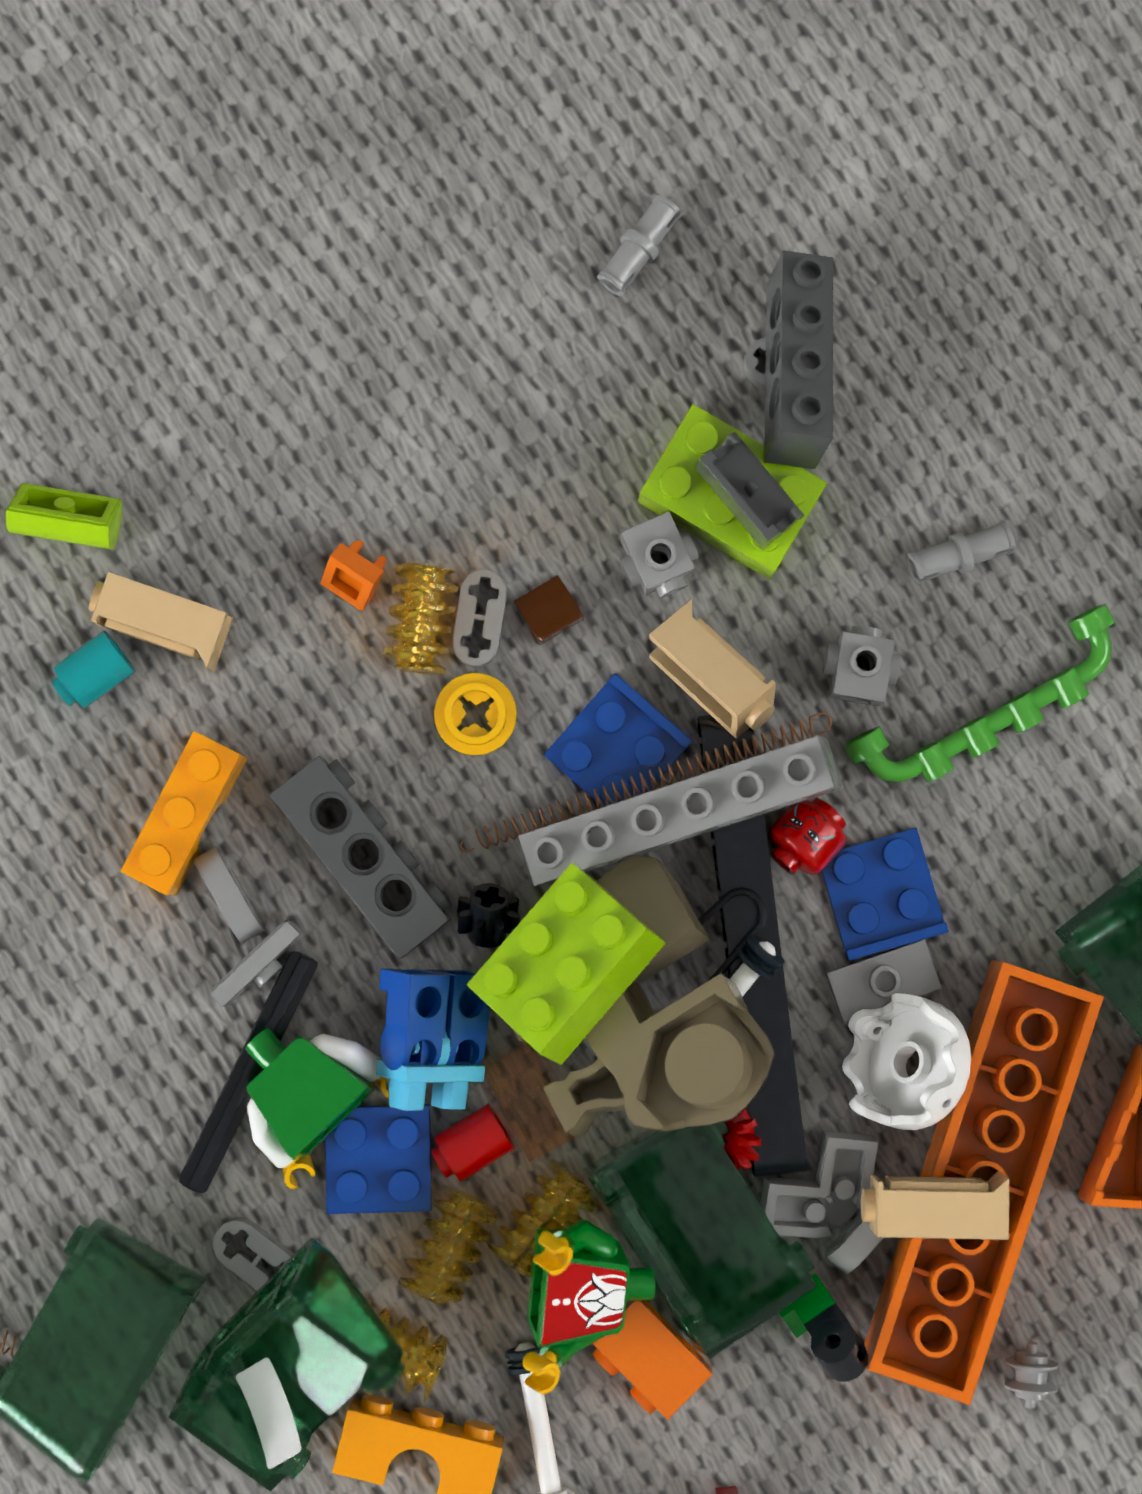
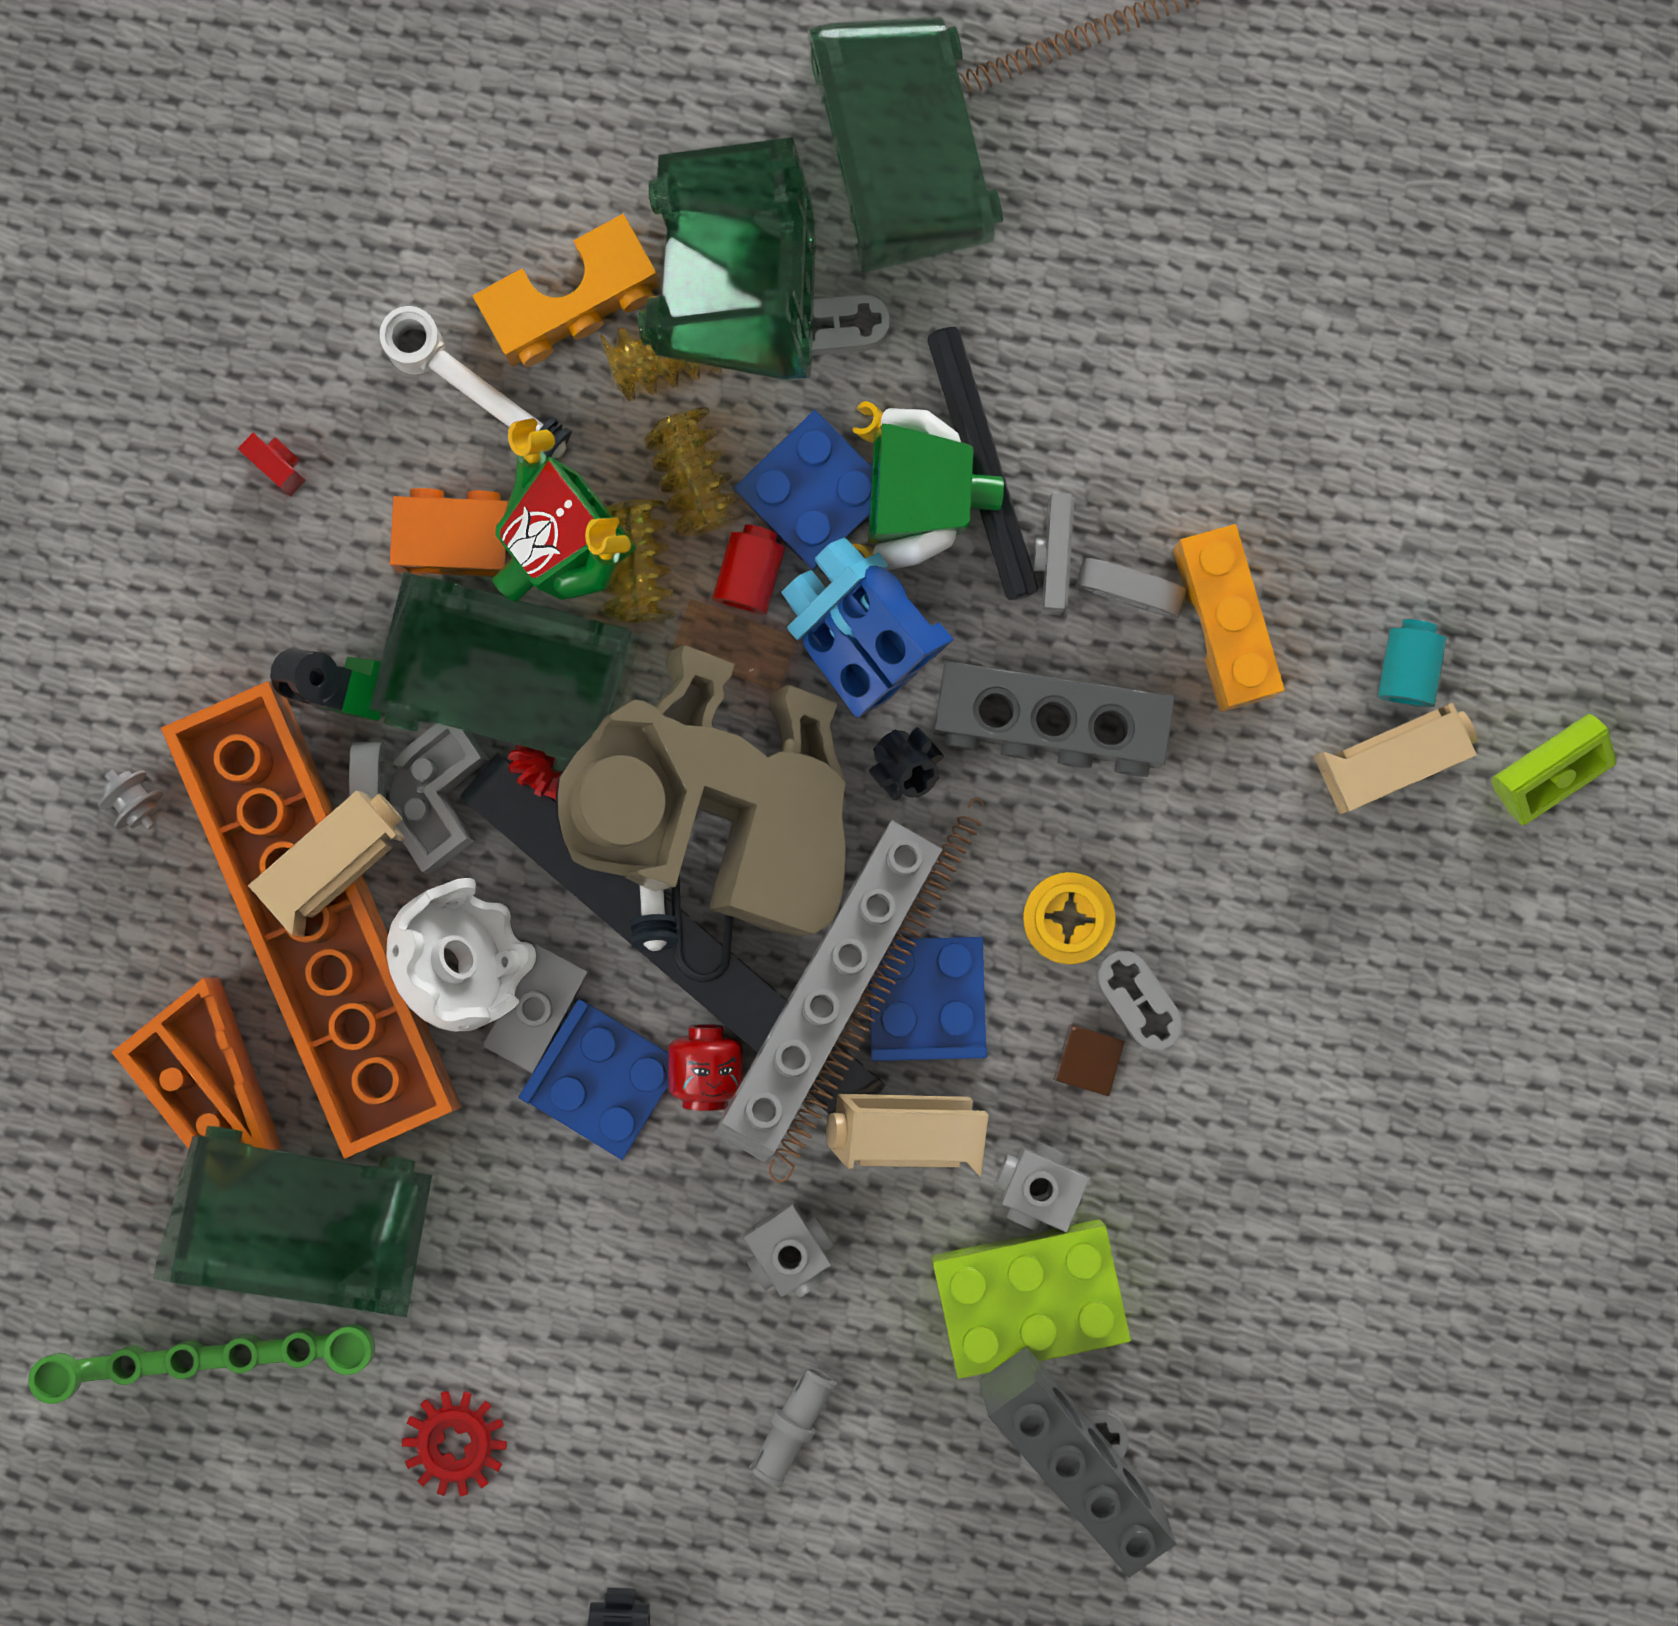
camera: 145 degrees right, 0 degrees up
(270, 1412) = (715, 215): white sticker -> none
(352, 575) = (1276, 938): orange tile -> none
(419, 618) = (1187, 953): clear yellow piece -> none
(565, 964) = (807, 779): lime brick -> none
(639, 245) = (1299, 1438): light grey pin -> none
(748, 490) = (1016, 1310): dark grey hinge -> none
(979, 734) = (623, 1336): bright green bar -> none

